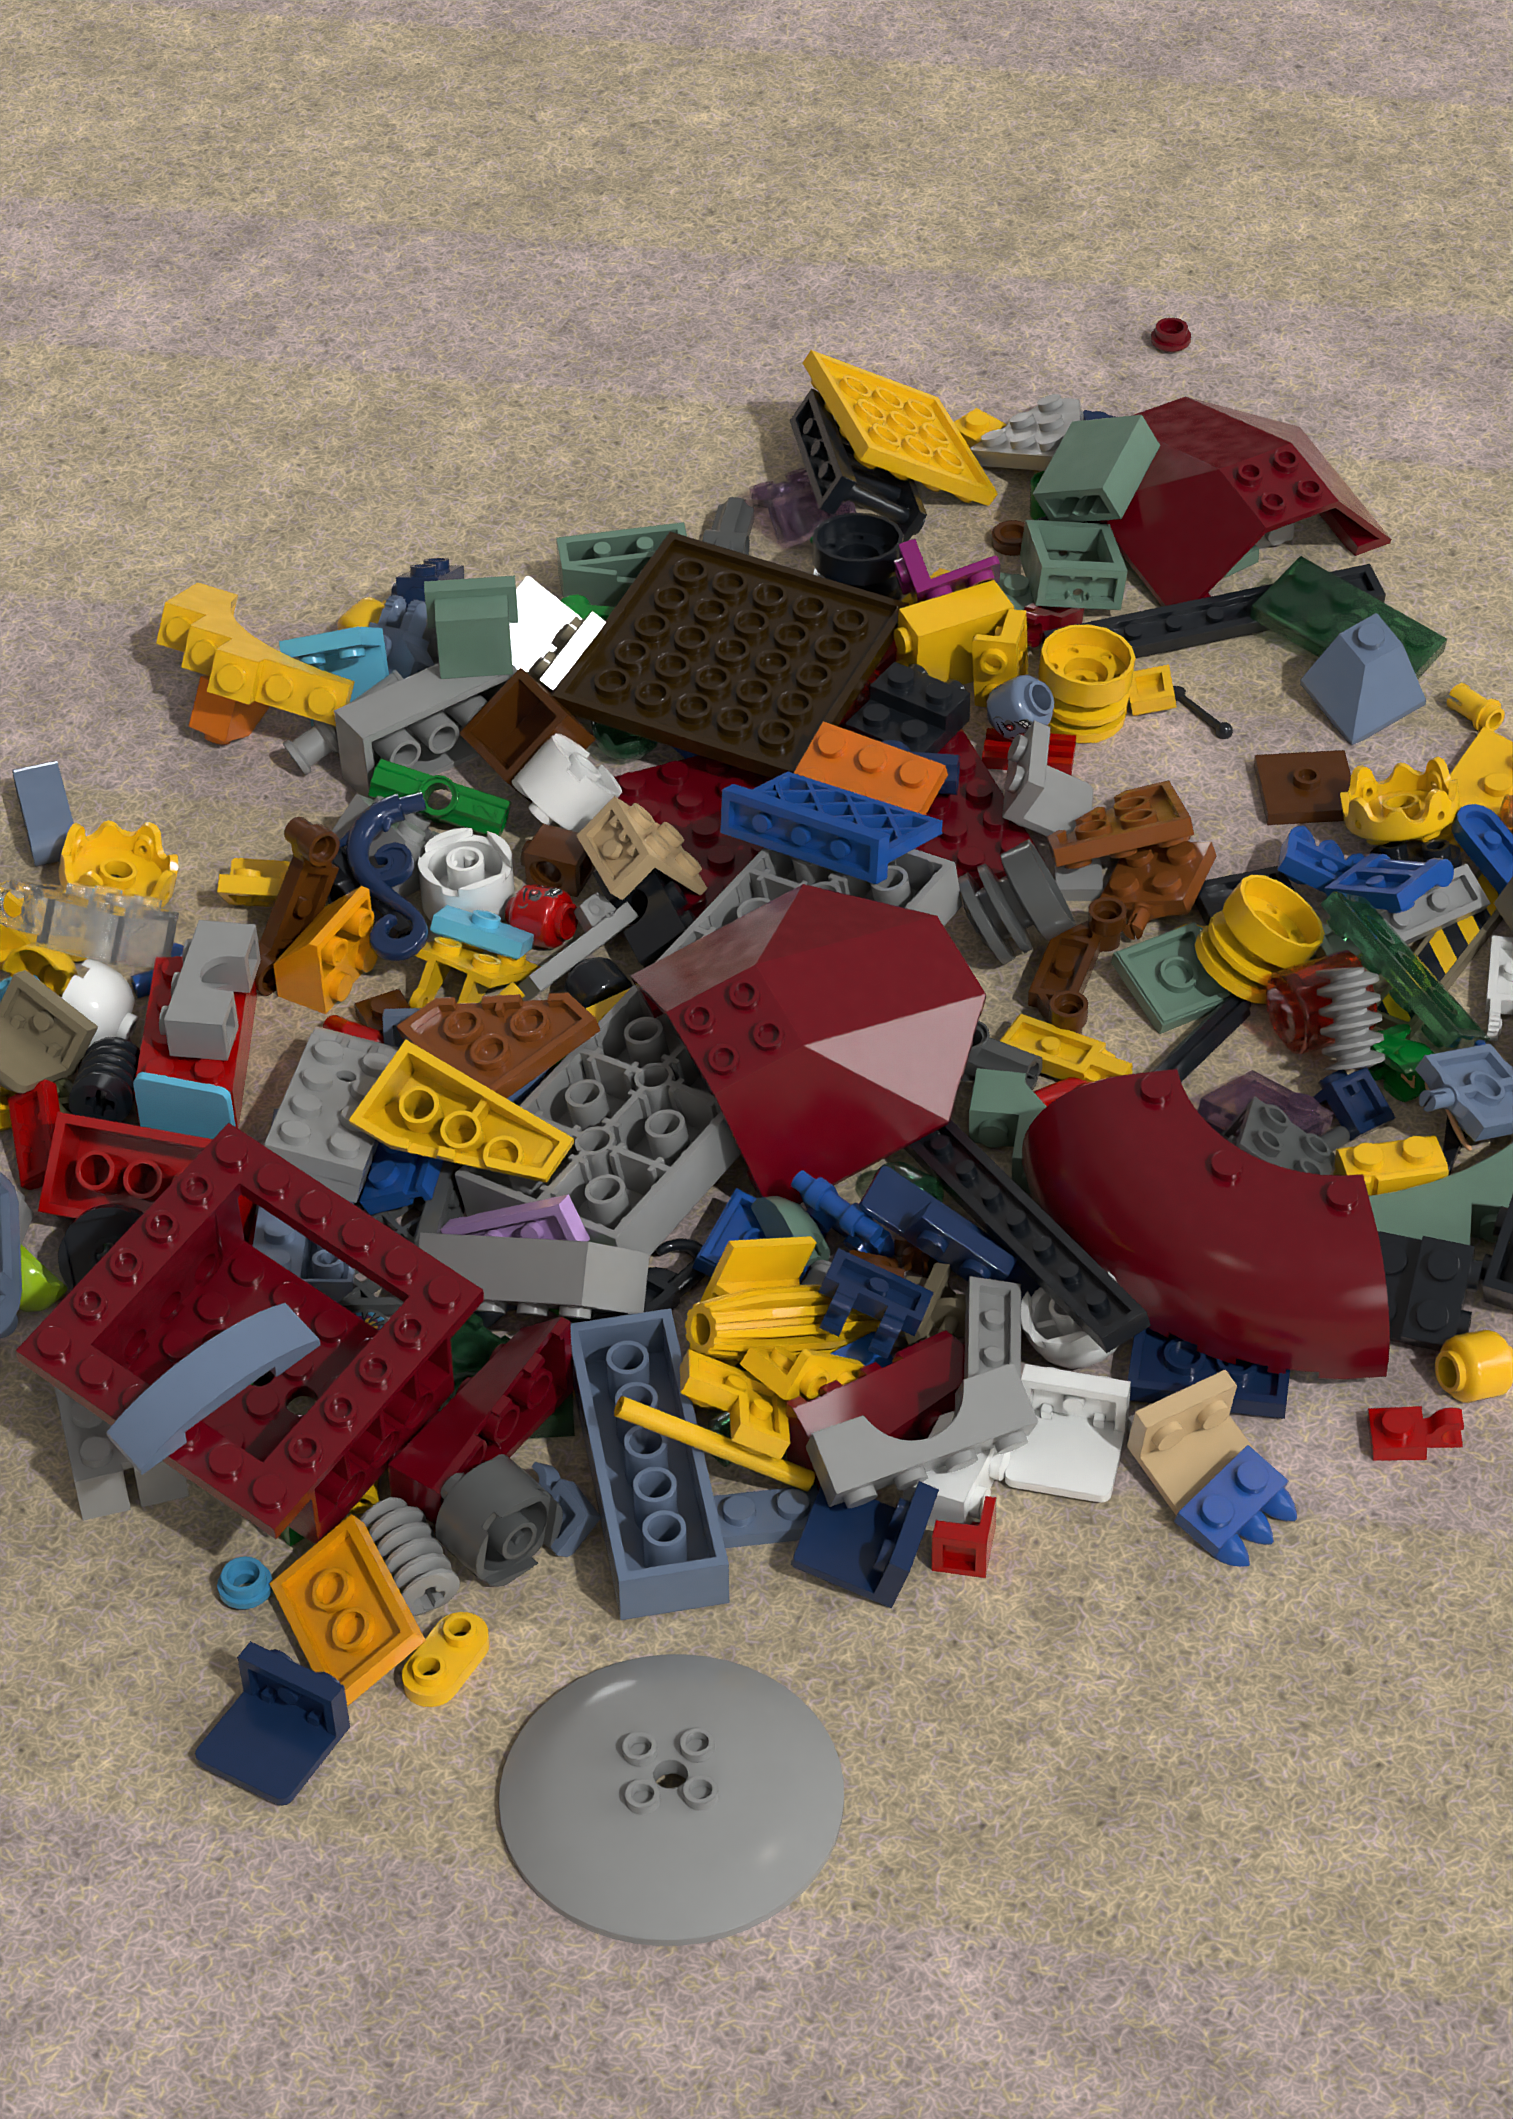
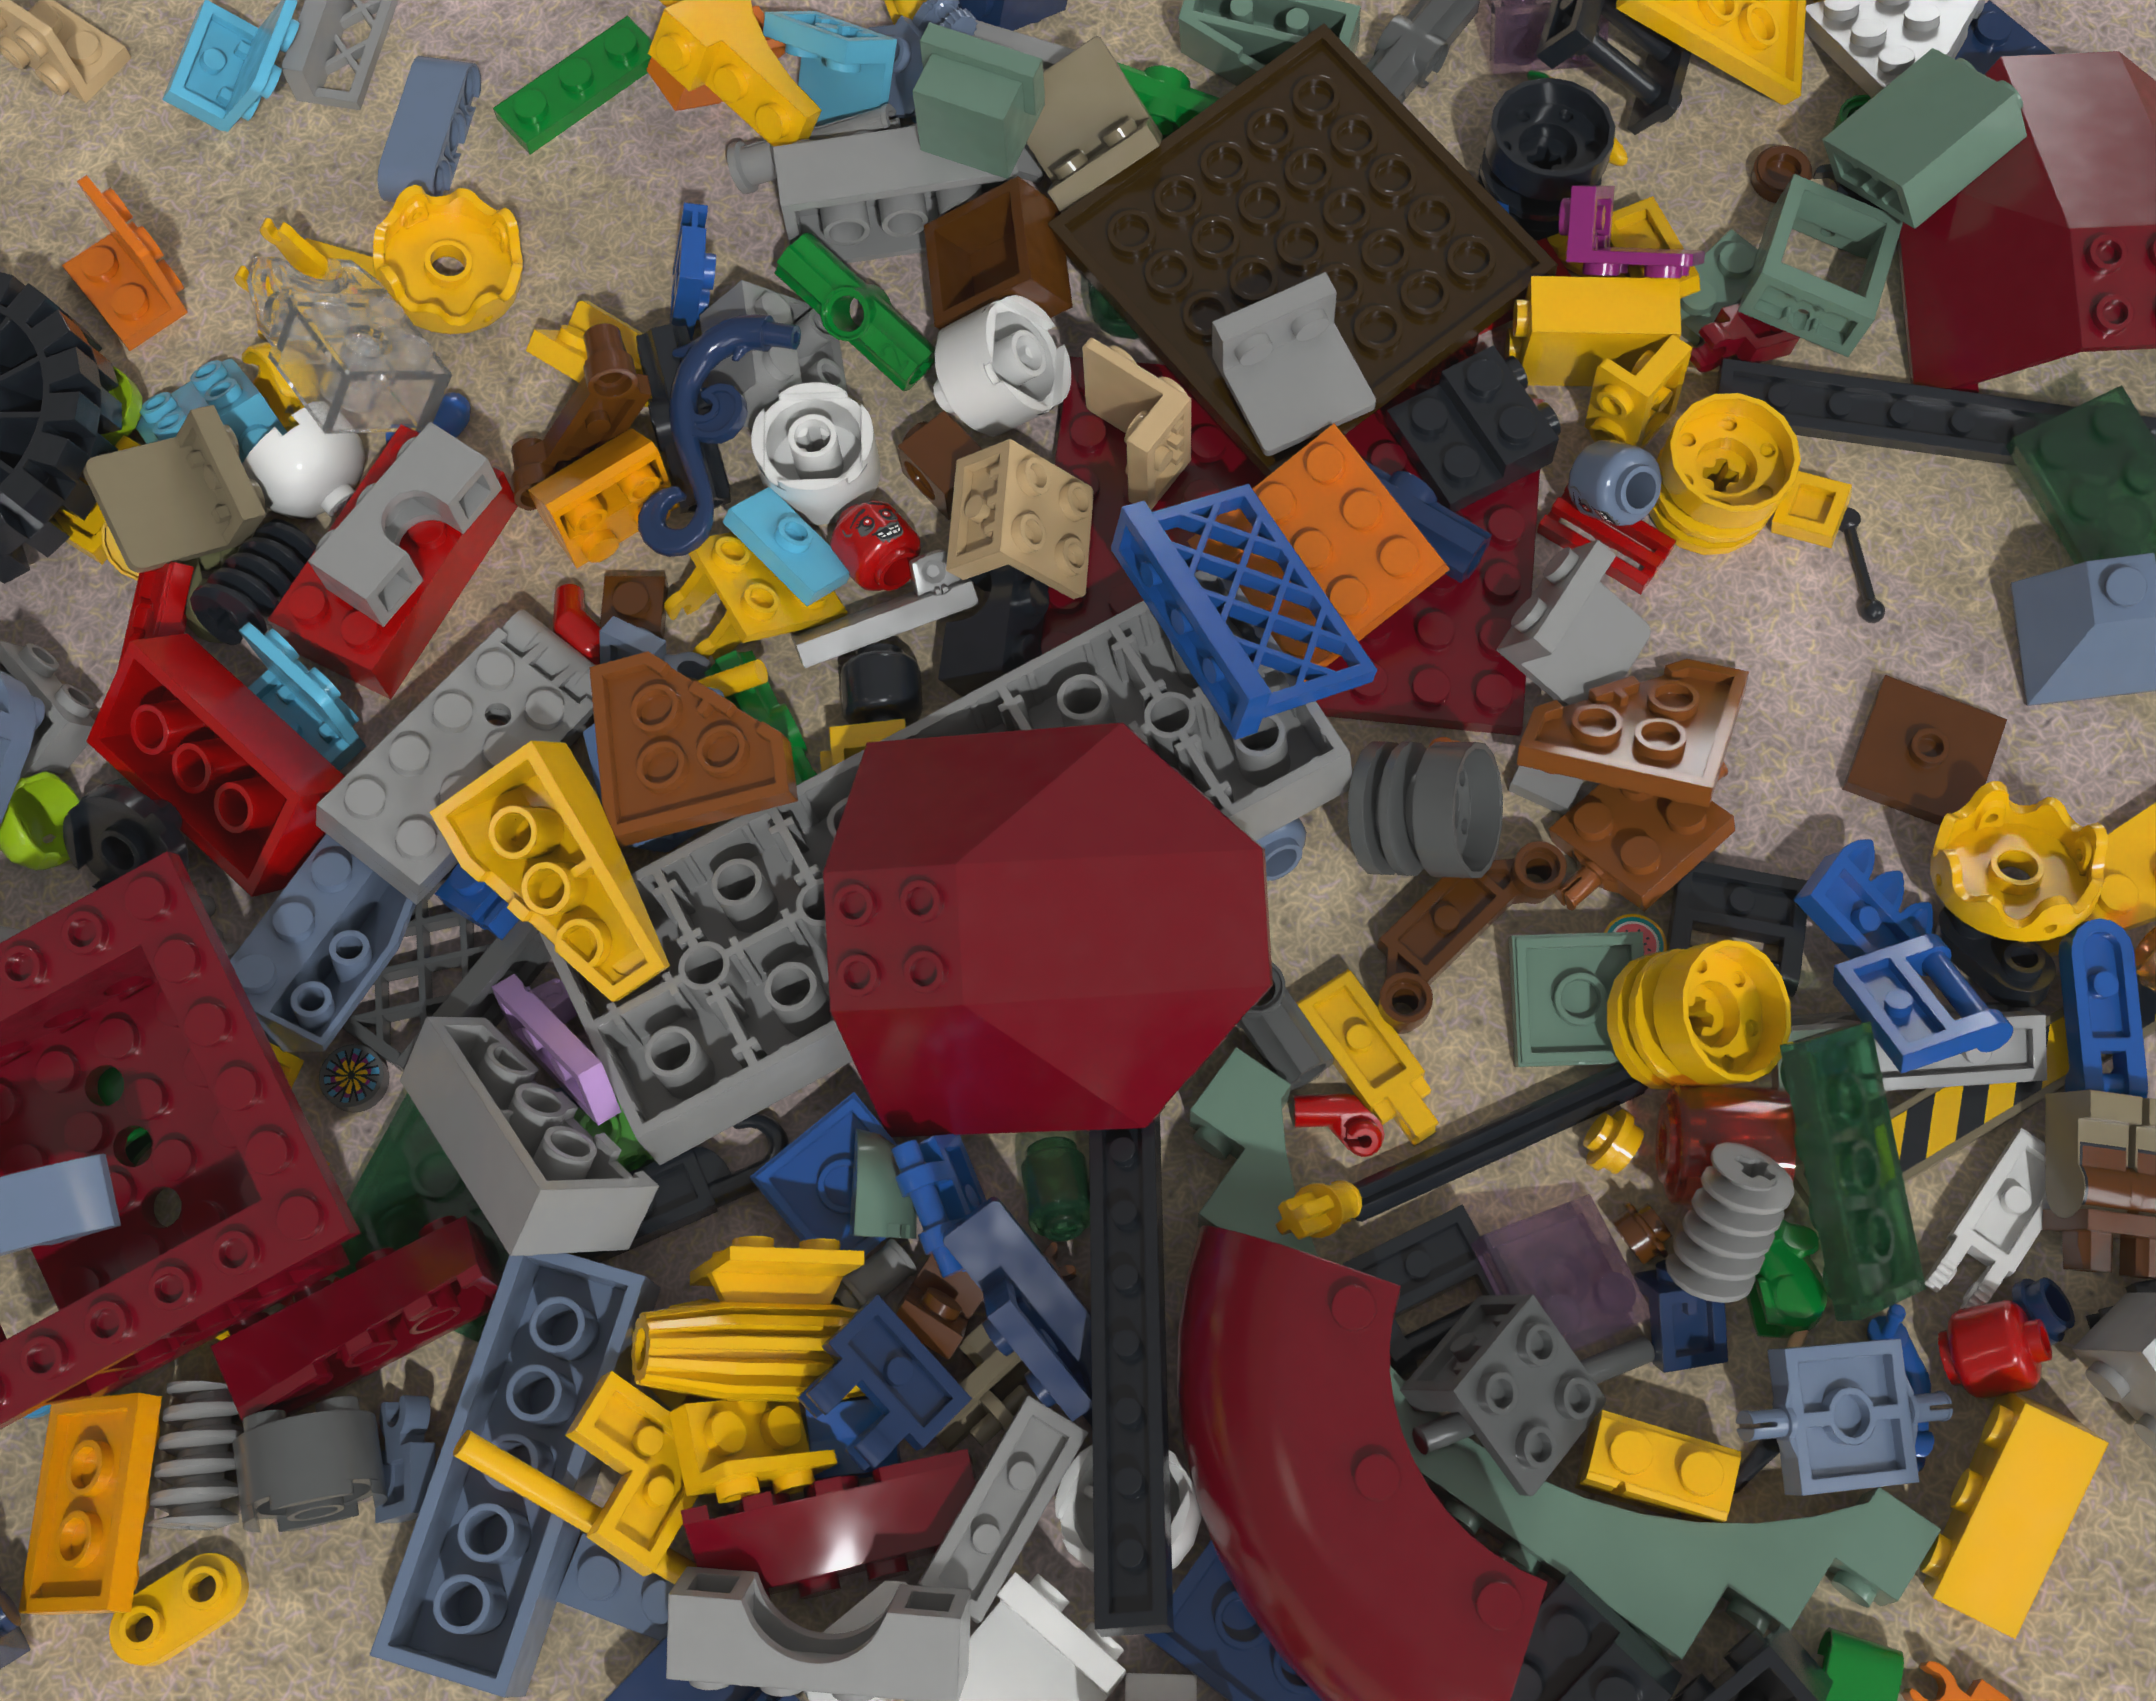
camera: 30 degrees right, 25 degrees up
(136, 757) = (576, 85): none -> green plate
(307, 796) = (691, 269): none -> blue plate
(682, 767) = (1147, 409): none -> tan bracket
(769, 706) = (1290, 365): none -> light grey bracket
(1248, 1037) = (1612, 1141): none -> yellow plate
(1298, 1073) = (1642, 1231): none -> reddish brown plate

